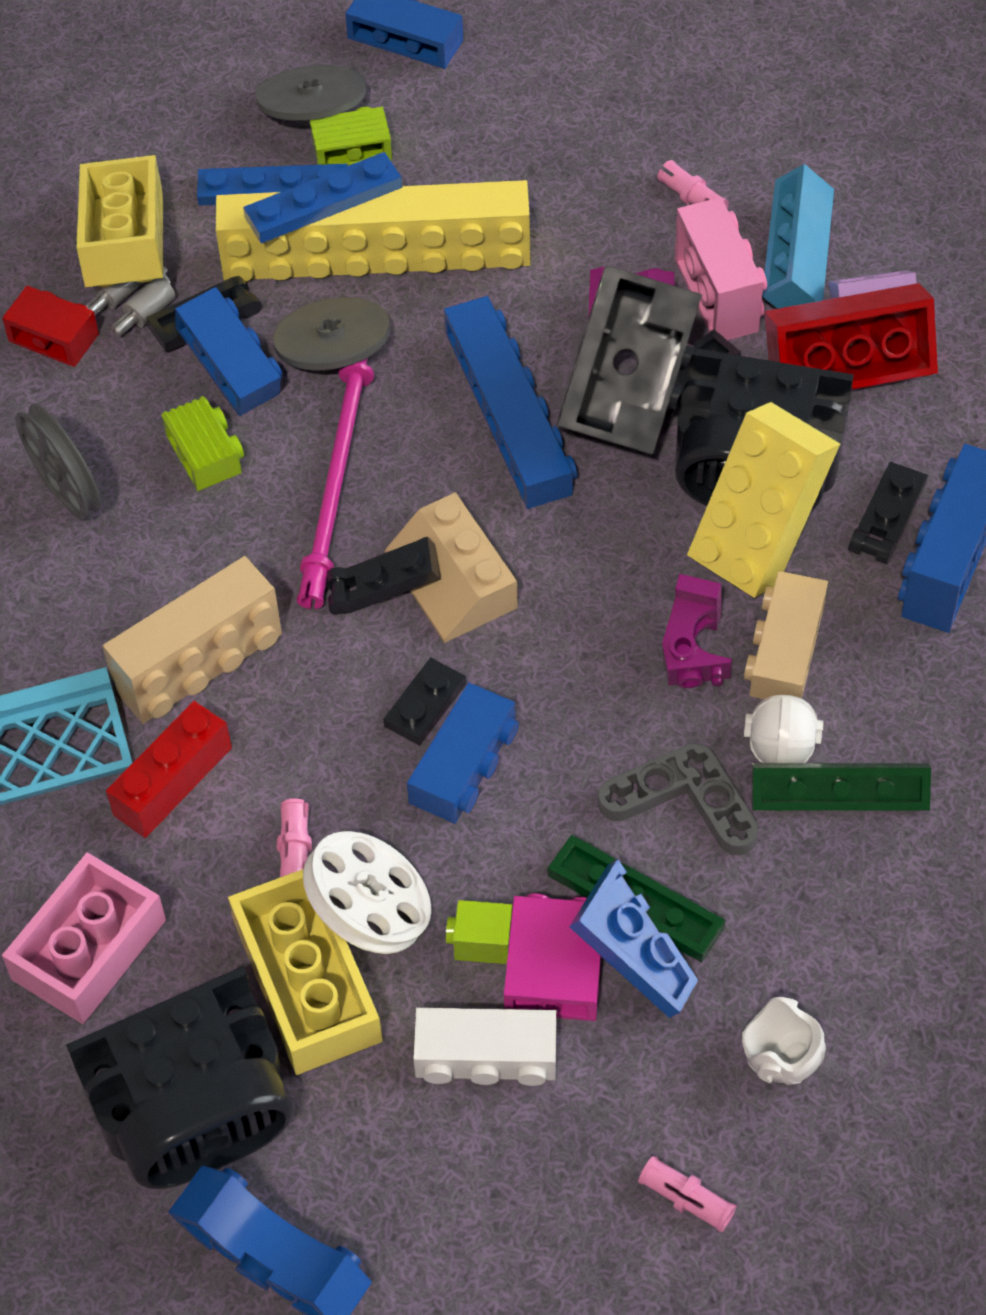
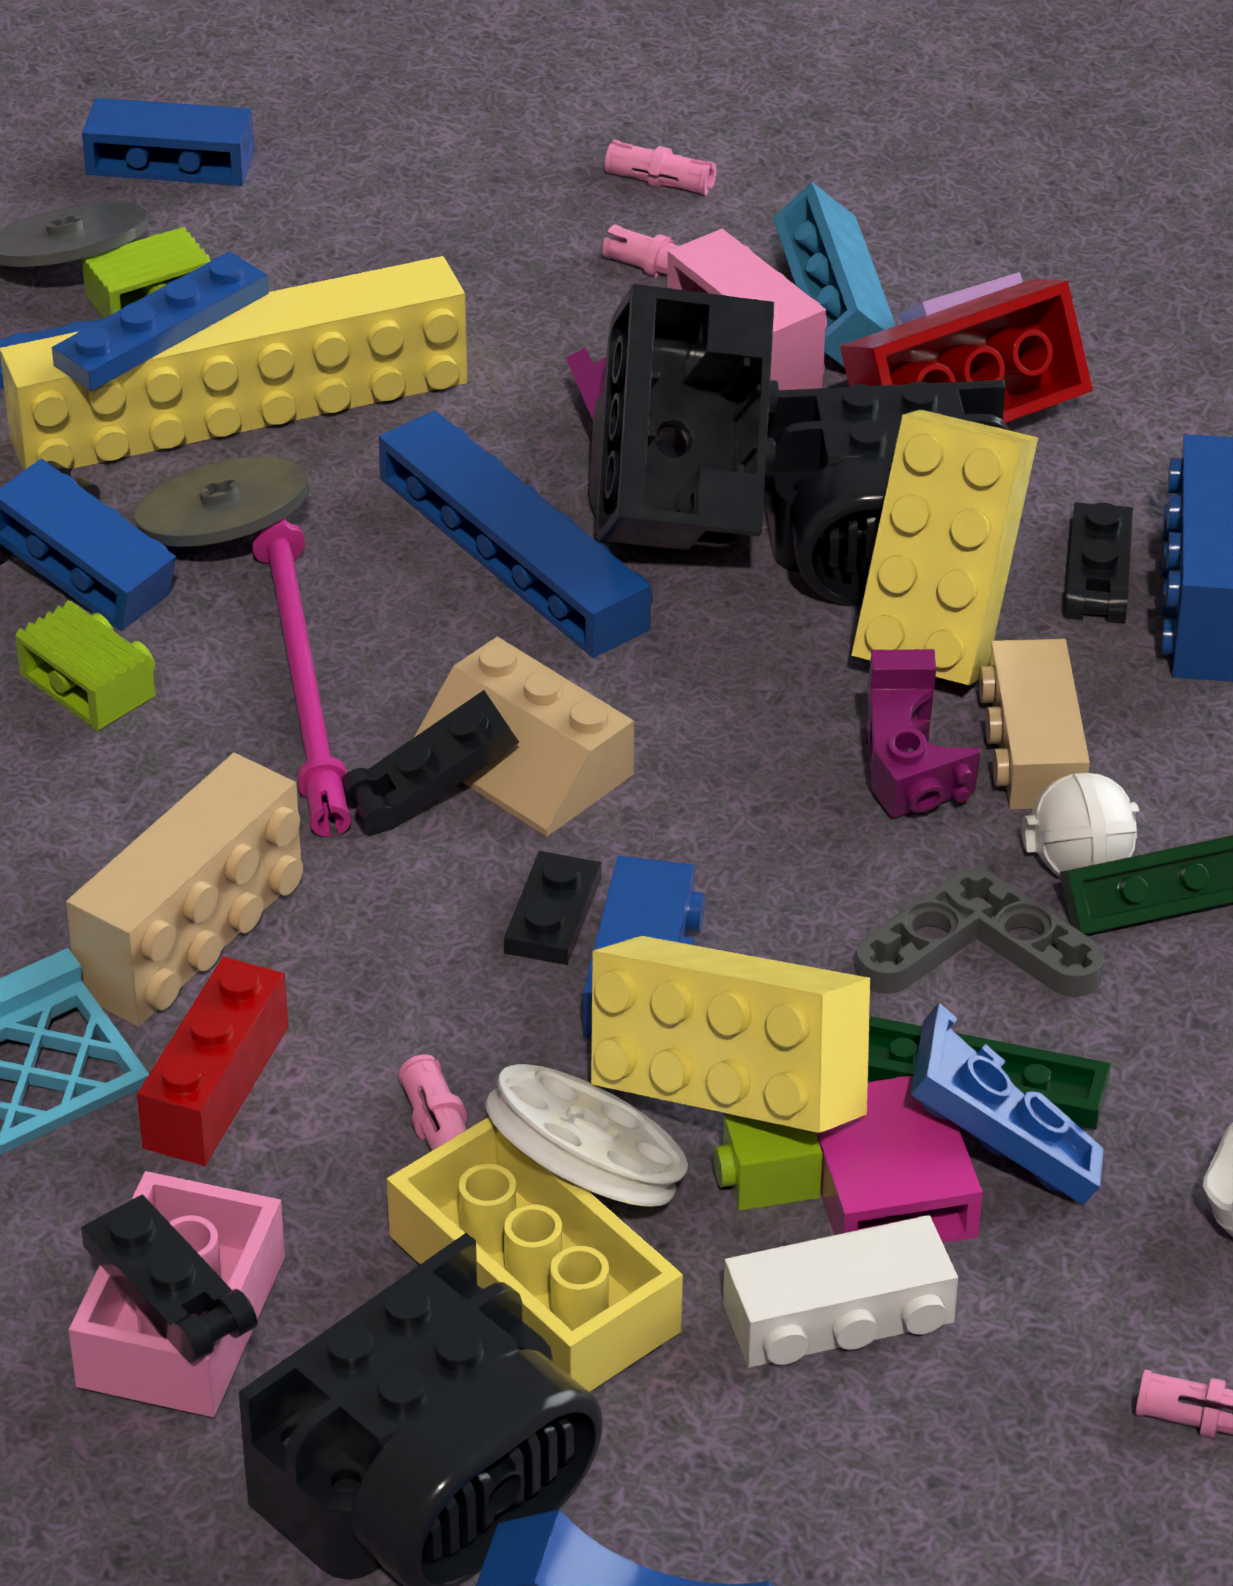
camera: 20 degrees left, 15 degrees down
(67, 937) = (167, 1278): none -> black plate
(473, 850) = (730, 1032): none -> light yellow brick
(723, 114) = (660, 167): none -> bright pink pin

